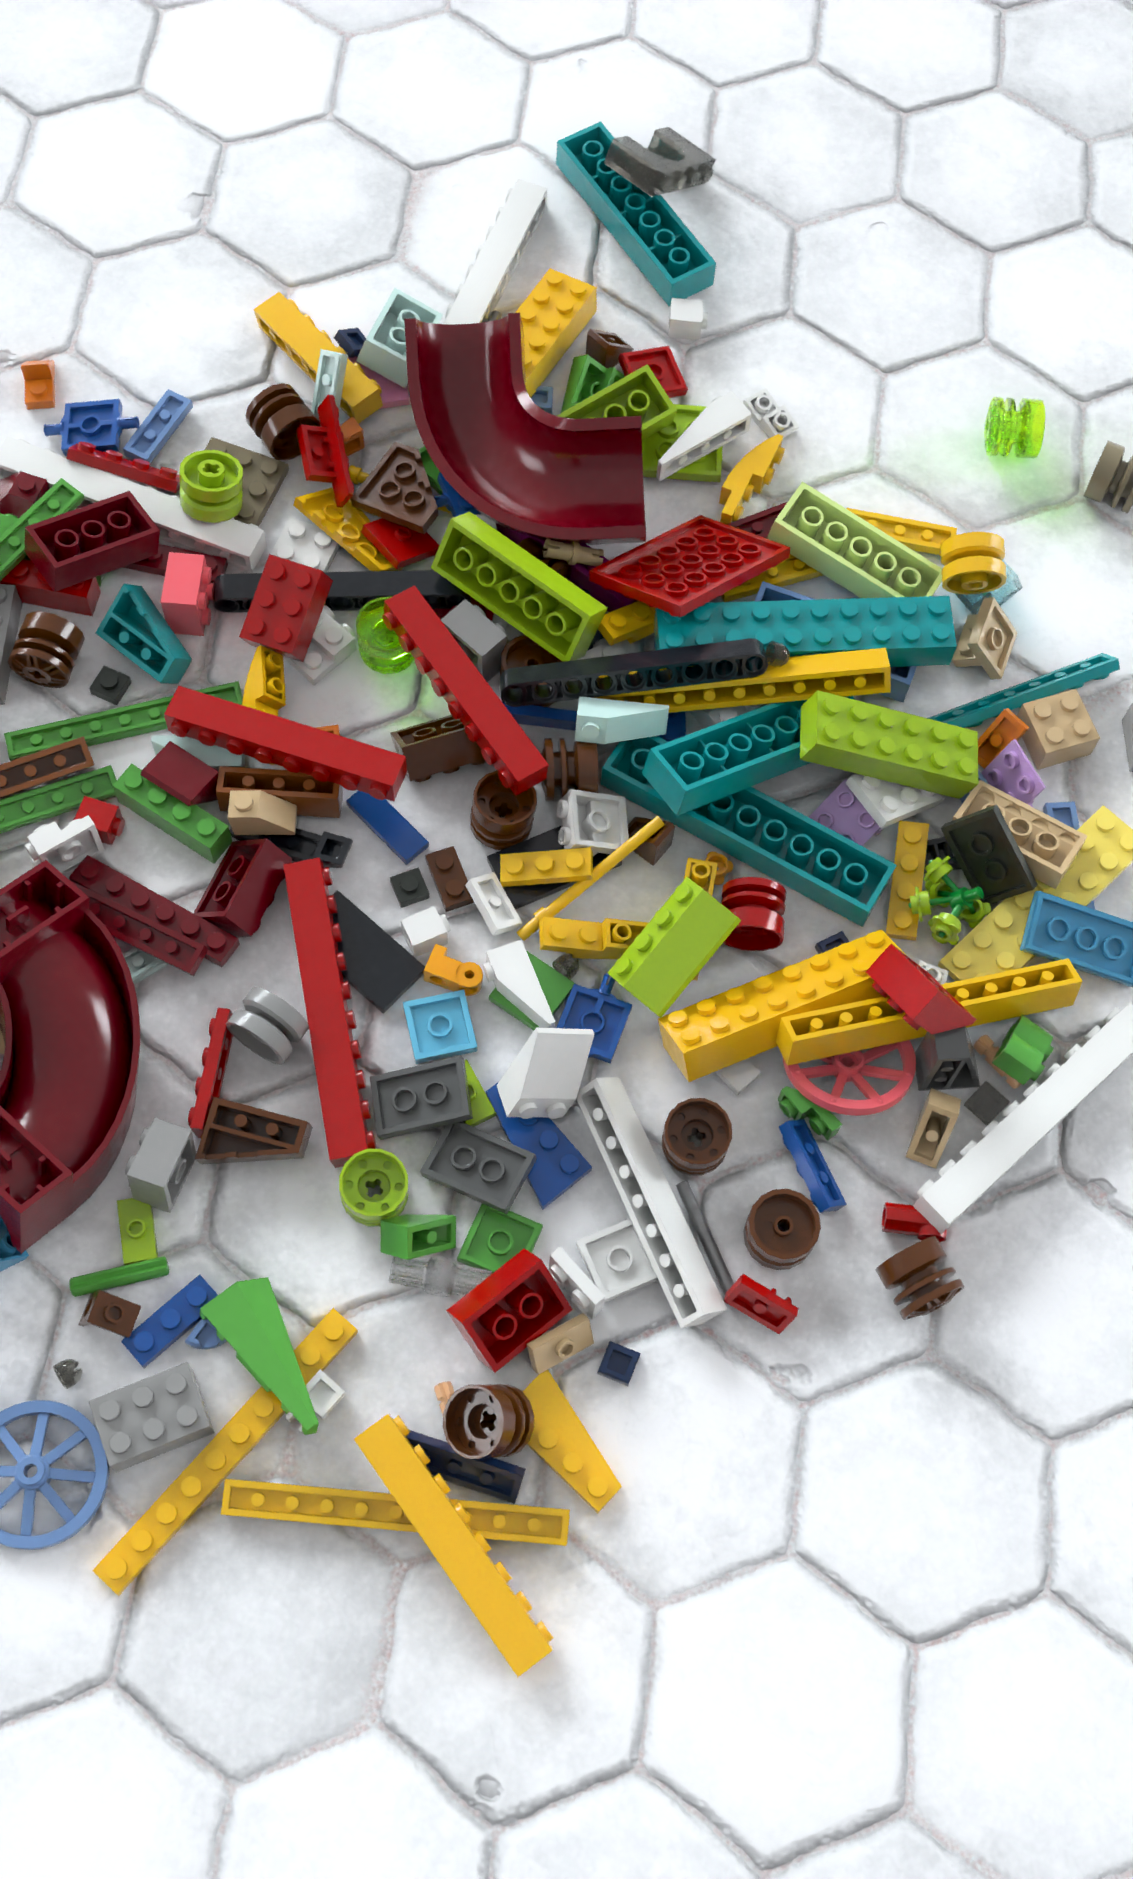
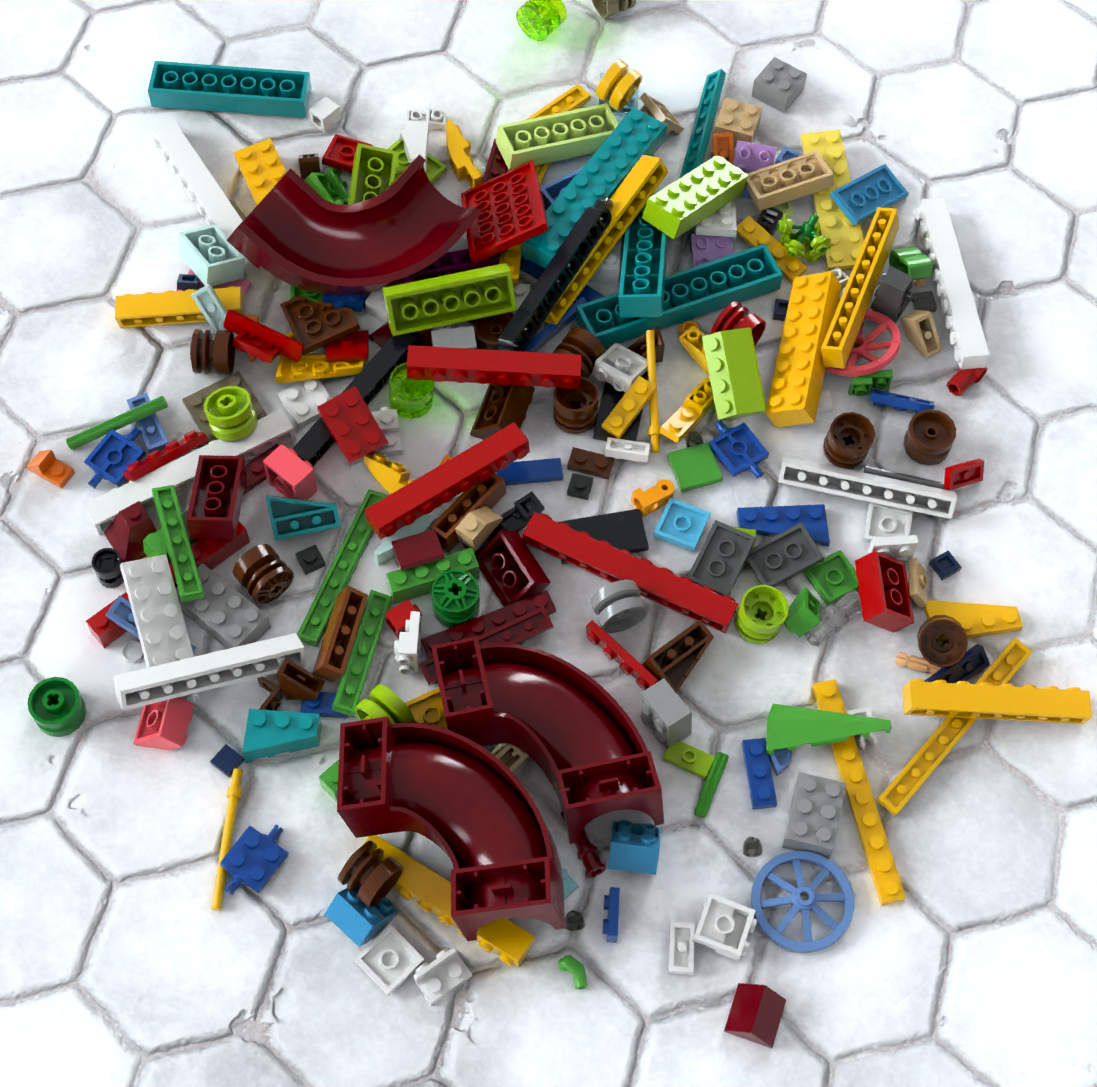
camera: 50 degrees left, 5 degrees down
(110, 1313) = (733, 800): reddish brown bracket -> none
(133, 399) = (117, 422): none -> bright green axle
(156, 853) = (451, 608): none -> green wheel
(425, 930) = (617, 494): white brick -> none
(517, 981) = (690, 465): white slope -> none
(546, 1073) = (763, 484): white slope -> none
(573, 553) = (447, 261): tan pin -> none
(617, 721) = (574, 309): light aqua slope -> none
(664, 166) = (213, 51): clear smoke arch -> none
(916, 993) = (857, 276): red slope -> none
(919, 1277) = (1008, 392): reddish brown wheel -> none
(989, 855) = (793, 197): pearl dark grey plate -> none

